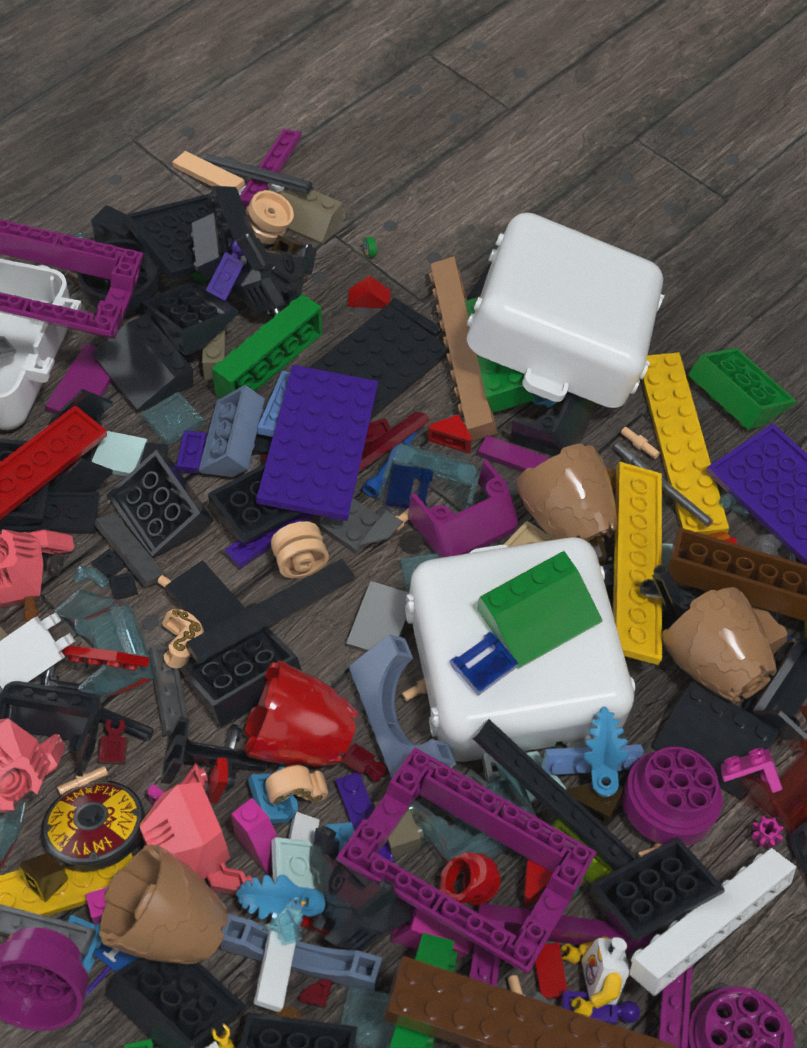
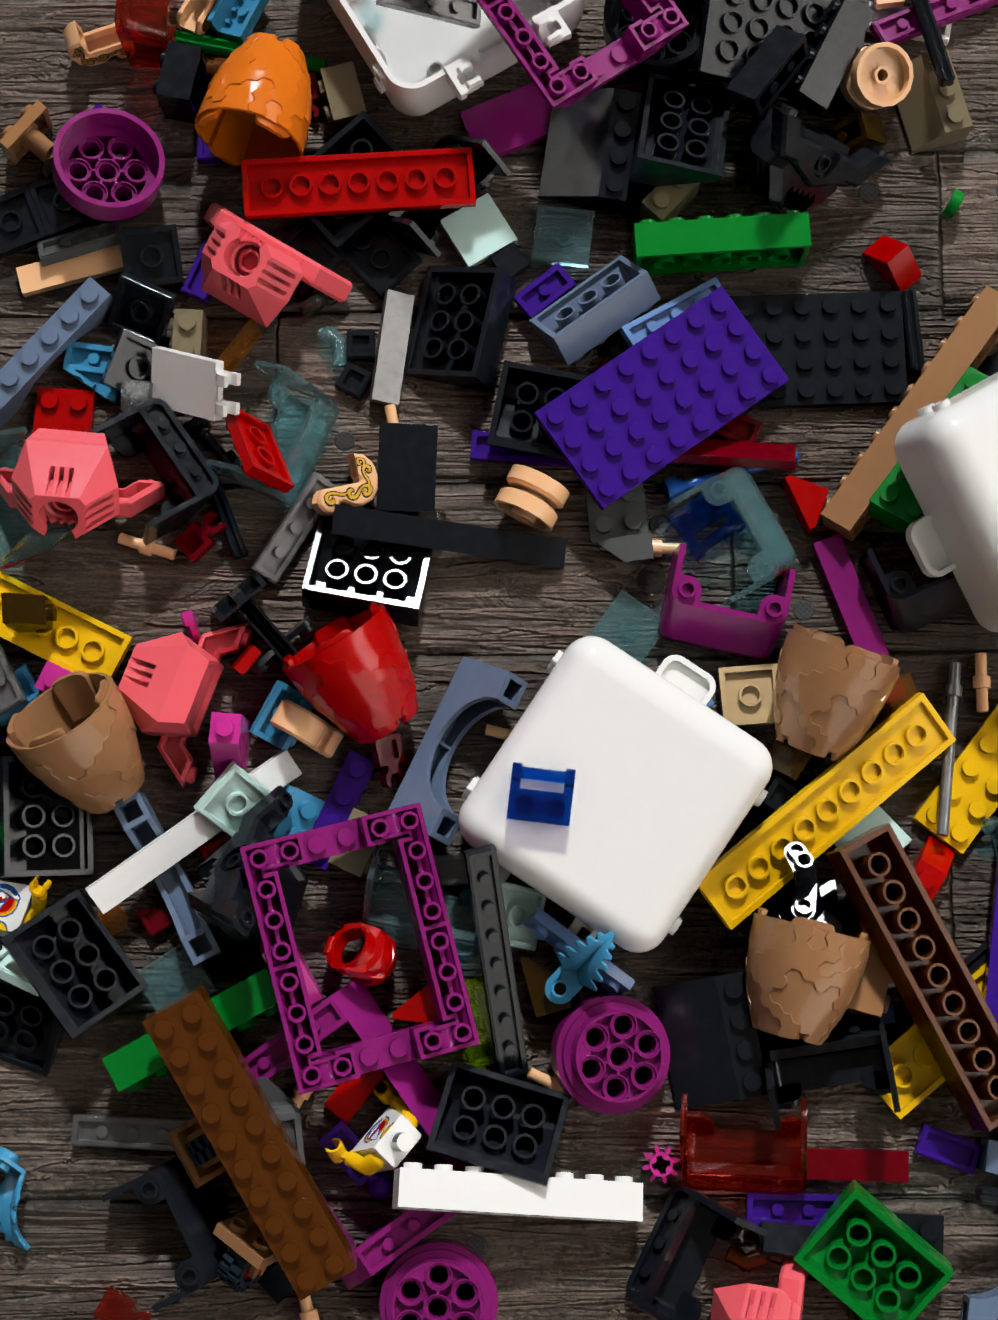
camera: 50 degrees right, 25 degrees up
(93, 825) = (114, 599): dish -> none
(227, 273) = (748, 123): dark purple plate -> none
(273, 897) = (188, 821): dark azure plant -> none
(288, 922) = (172, 849): clear light blue animal -> none
(379, 615) = (538, 633): light grey tile -> none
(540, 609) = (642, 795): green slope -> none
(756, 760) = (702, 1102): dark pink bracket -> none
(768, 540) = (978, 907): clear plate -> none

